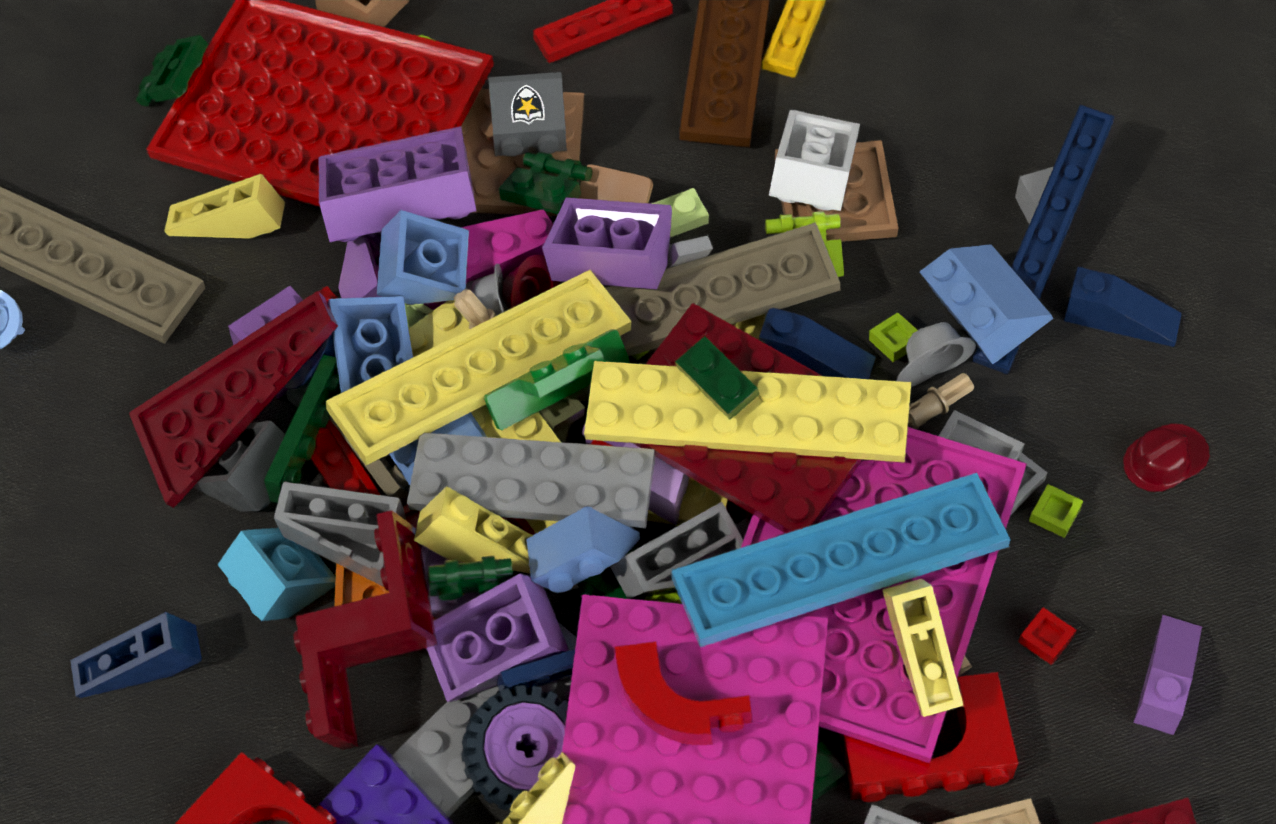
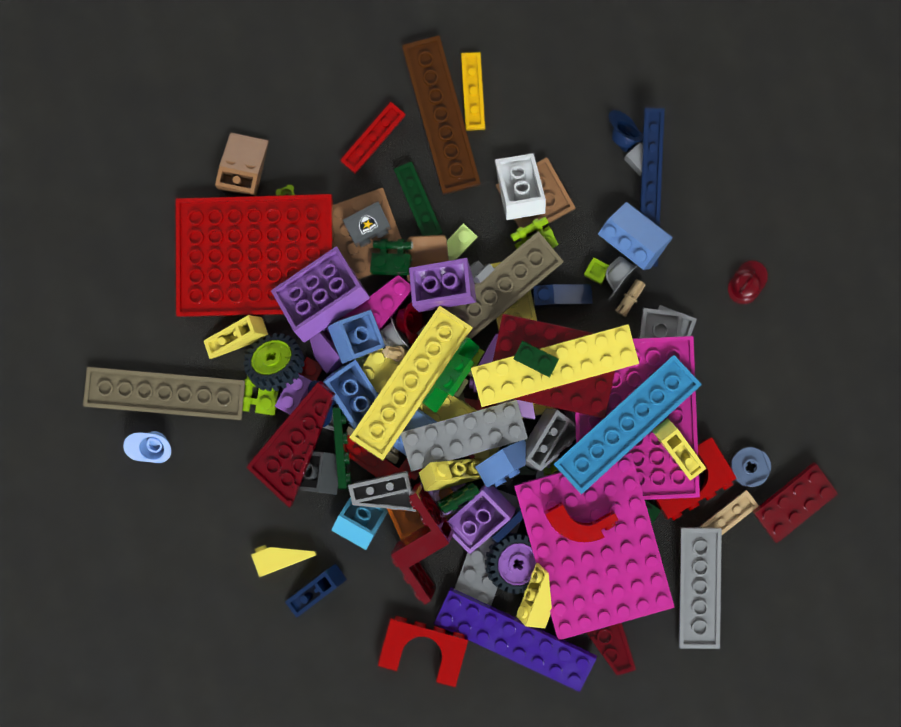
camera: 25 degrees left, 25 degrees up
(94, 577) = (274, 558): none -> light yellow slope
(172, 70) = (165, 264): dark green plate -> none
(213, 331) = (265, 400): none -> lime plate
(265, 261) = (274, 362): none -> wheel
(633, 122) = (417, 200): none -> dark green plate
(1029, 148) = (624, 131): none -> dark blue piece
(1039, 781) = (756, 457): none -> sand blue plate
(1047, 636) = (725, 404): red plate -> none
(1056, 510) = (707, 336): lime plate -> none
(1120, 308) = (700, 209): dark blue slope -> none
(1169, 675) = (786, 399): medium lavender slope -> none

